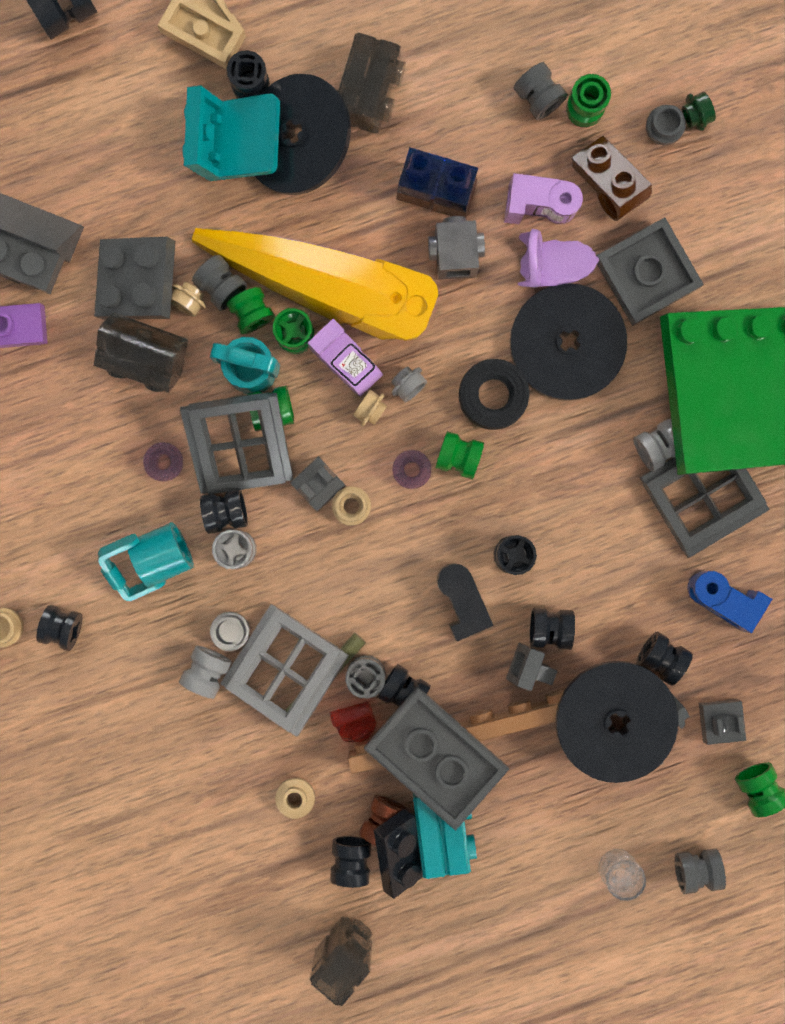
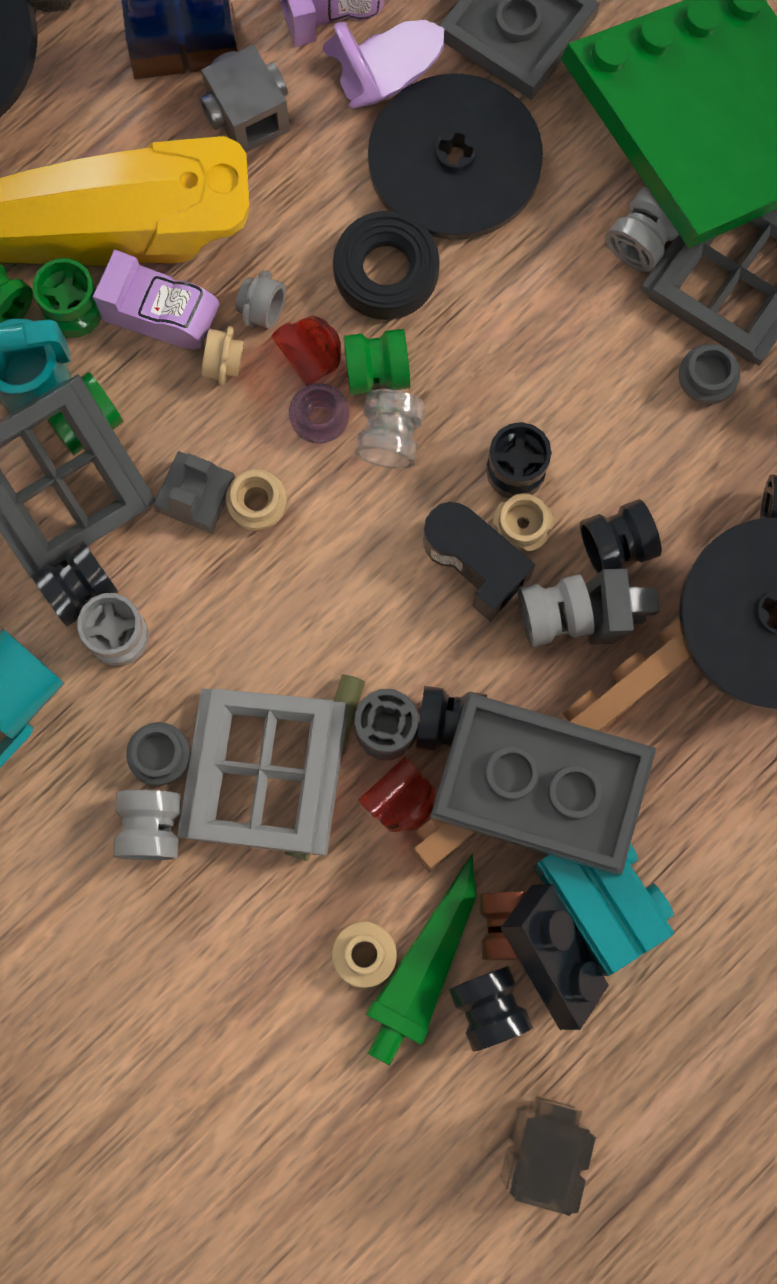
camera: 25 degrees left, 10 degrees down
(314, 828) = (416, 984): none -> green bar
(423, 428) = (309, 347): none -> clear red plate
(448, 500) = (390, 428): none -> clear wheel
(484, 654) = (556, 610): none -> light grey wheel
(510, 595) = (529, 508): none -> tan plate
(654, 550) = (709, 374): none -> dark grey plate

